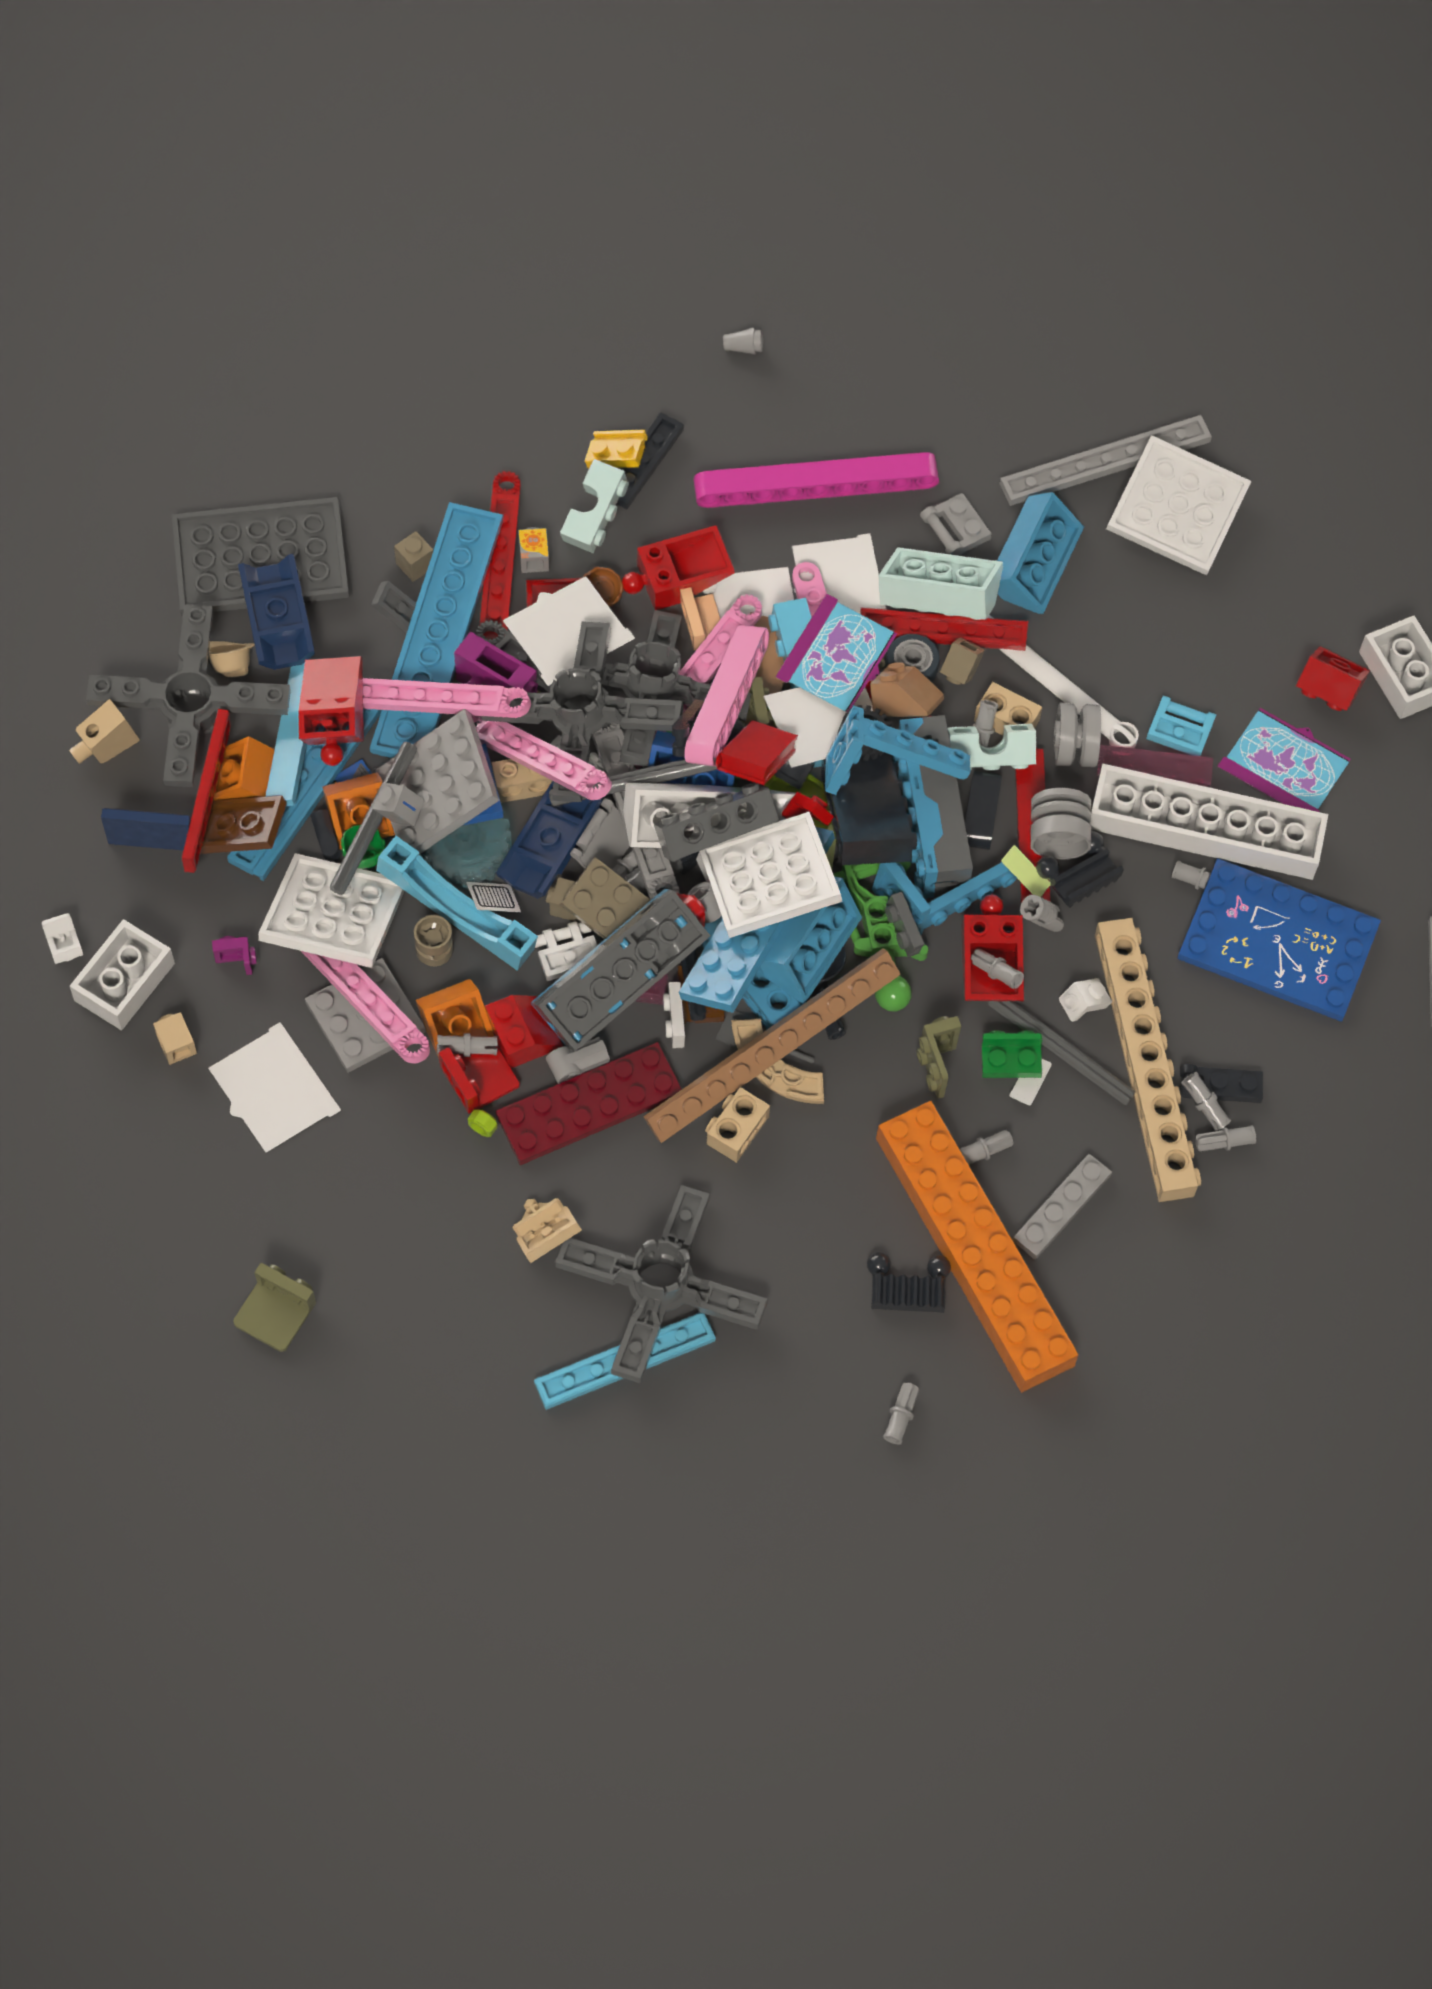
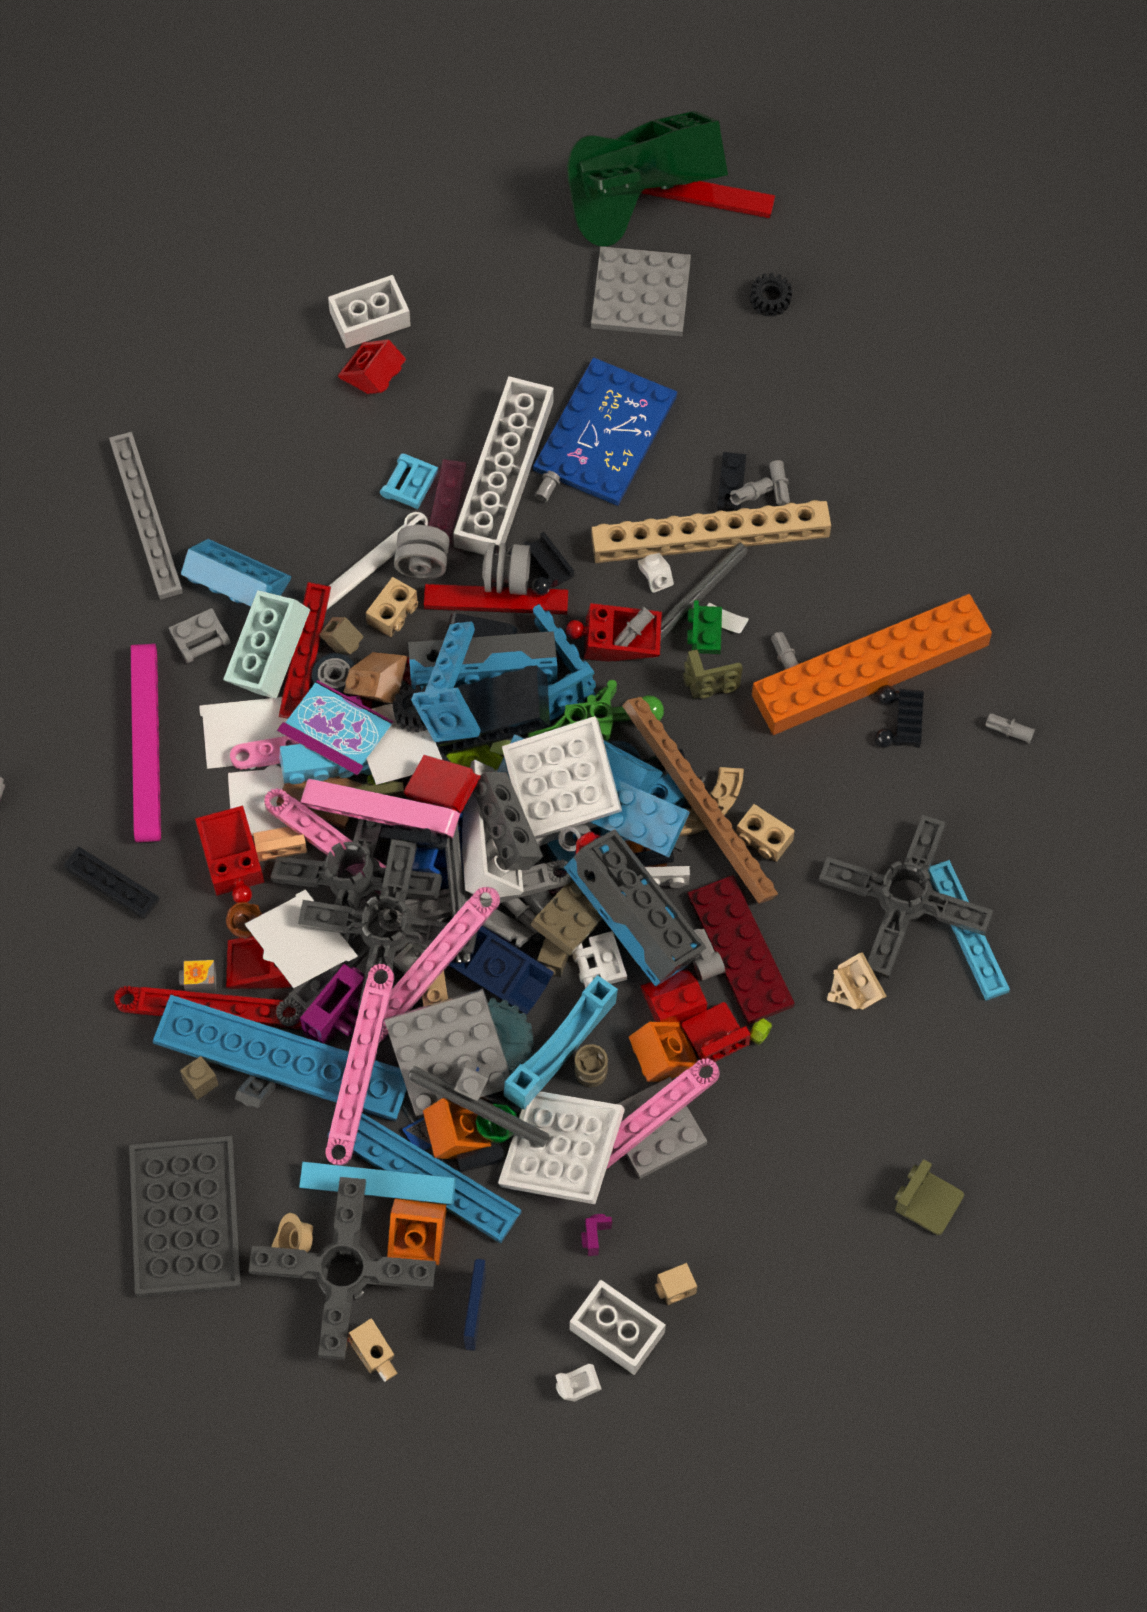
camera: 85 degrees left, 0 degrees up
(206, 791) = (439, 1251): red tile -> none
(243, 824) = (473, 1225): reddish brown plate -> none
(273, 1088) = (720, 1205): white sticker -> none
(277, 614) = (254, 1192): dark blue piece -> none
(331, 699) = (356, 1141): slope -> none
(467, 1044) = (692, 1038): light grey pin -> none
(493, 897) = (550, 1016): white sticker -> none
(587, 528) = (182, 927): light aqua arch -> none
(617, 448) = (99, 903): yellow plate -> none
(802, 804) = (492, 745): red bracket -> none
(907, 933) = (597, 689): dark grey plate -> none
(985, 721) = (408, 623): light grey axle -> none
(1015, 749) = (432, 600): light aqua arch -> none
(1025, 871) = (545, 602): yellowish green sticker -> none
(1041, 913) = (589, 590): light grey hinge -> none
(1062, 1206) = (834, 603): light grey plate -> none
(1178, 505) = (199, 461): white plate -> none
(1285, 762) = (444, 412): sticker -> none

